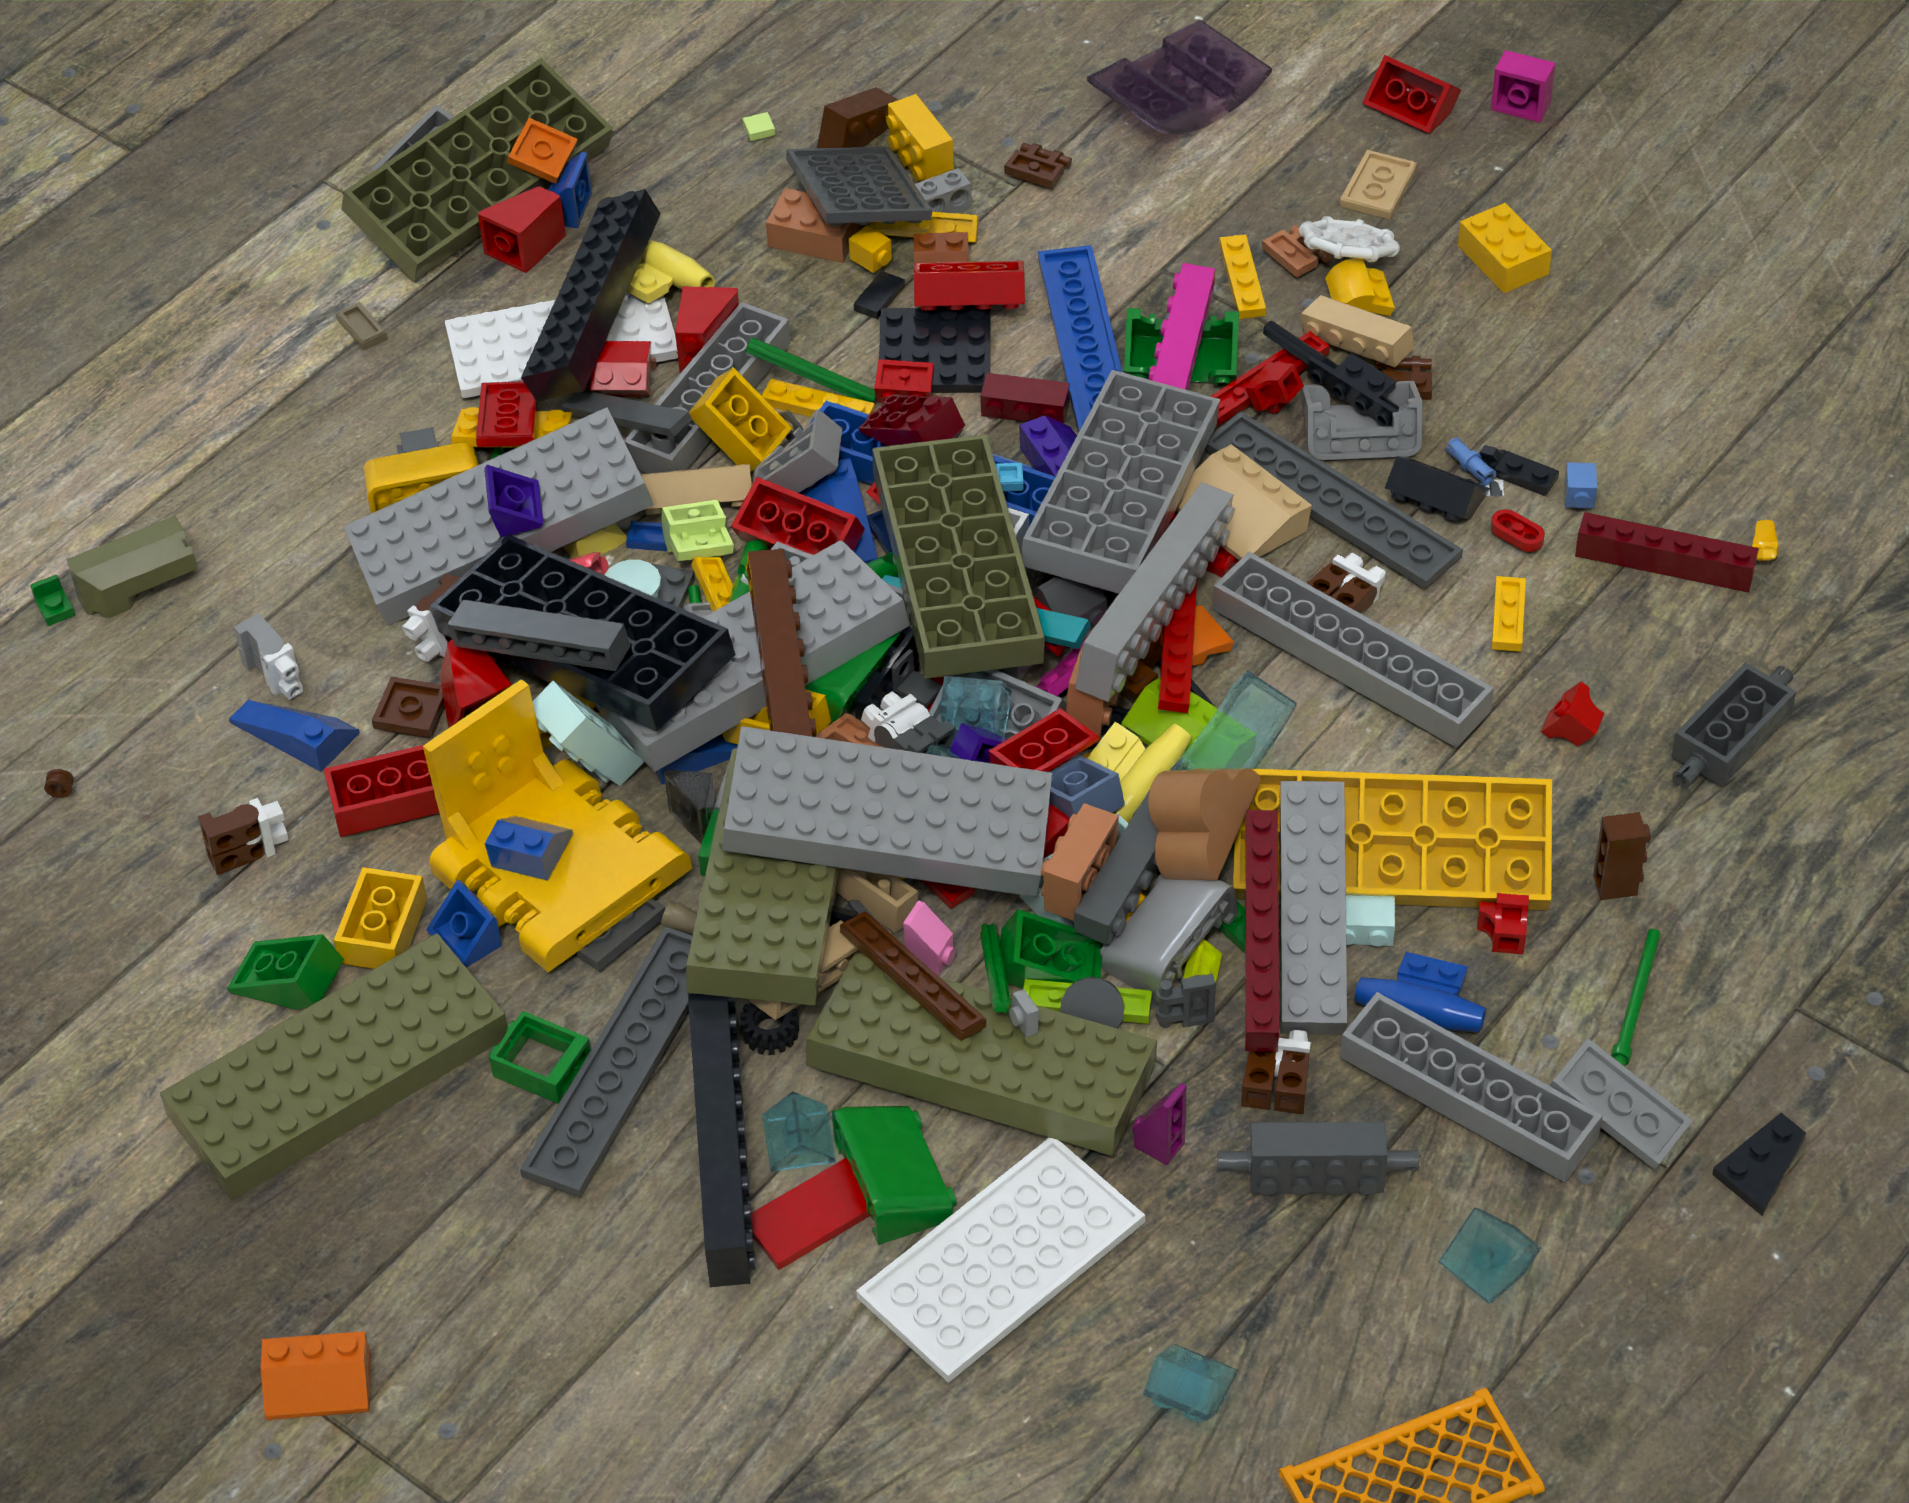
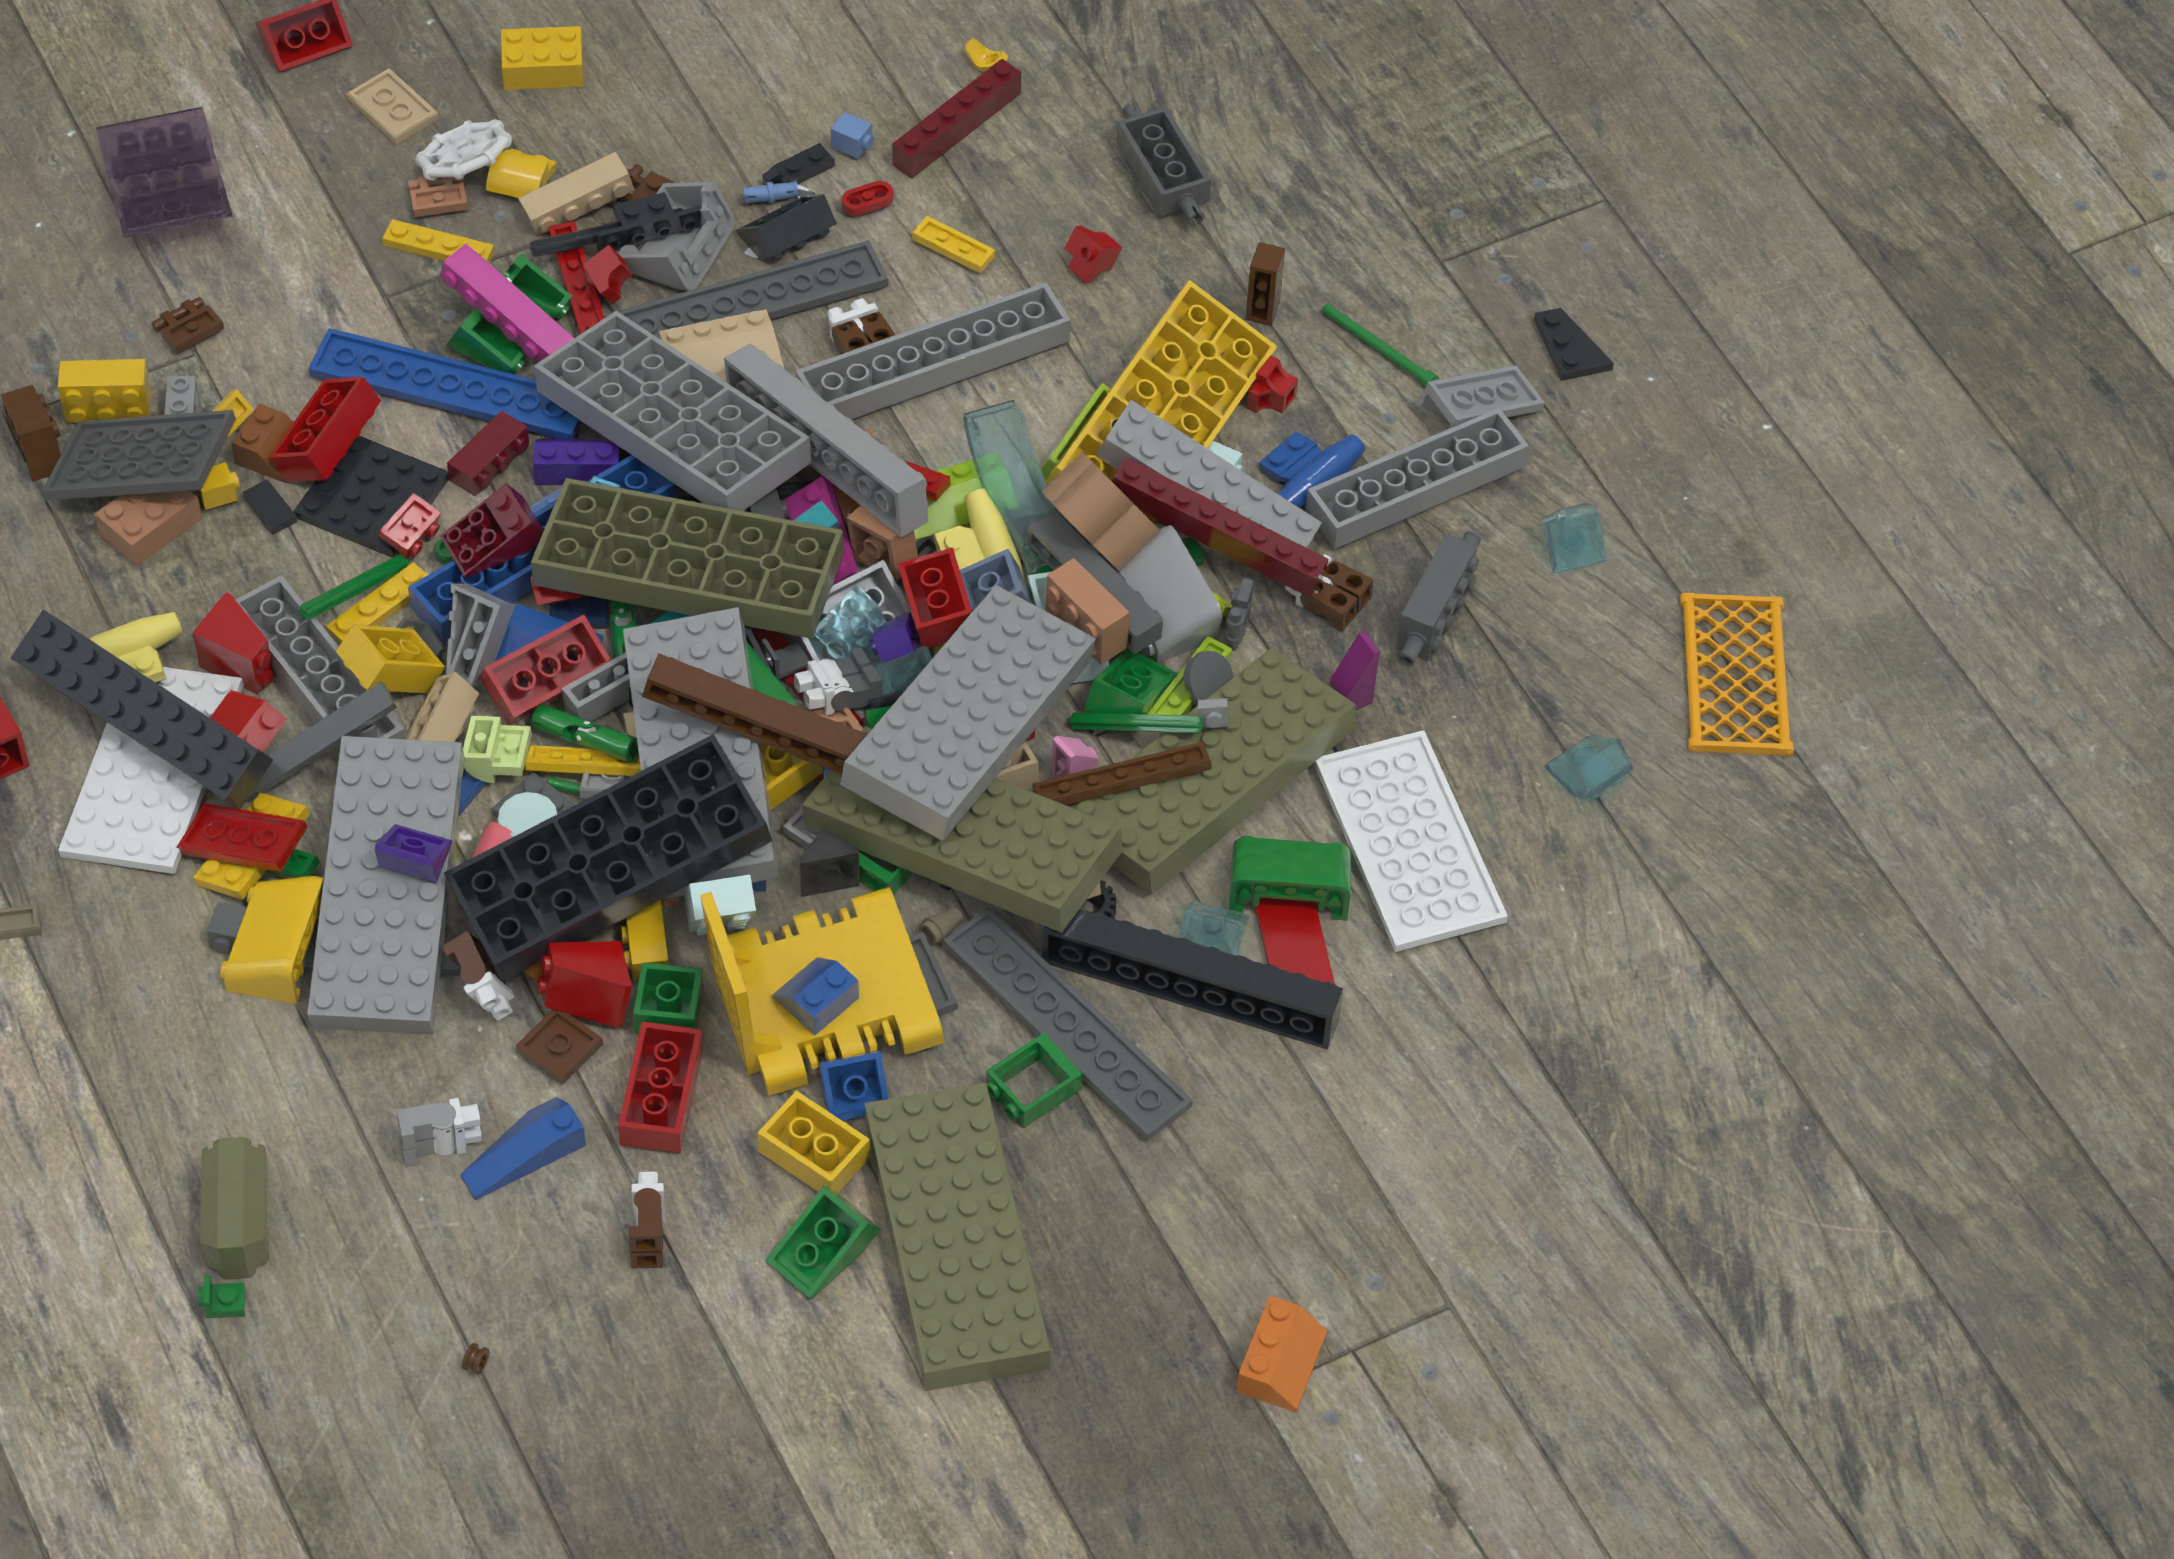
camera: 70 degrees left, 5 degrees up
(539, 635) = (619, 878): dark grey brick -> none

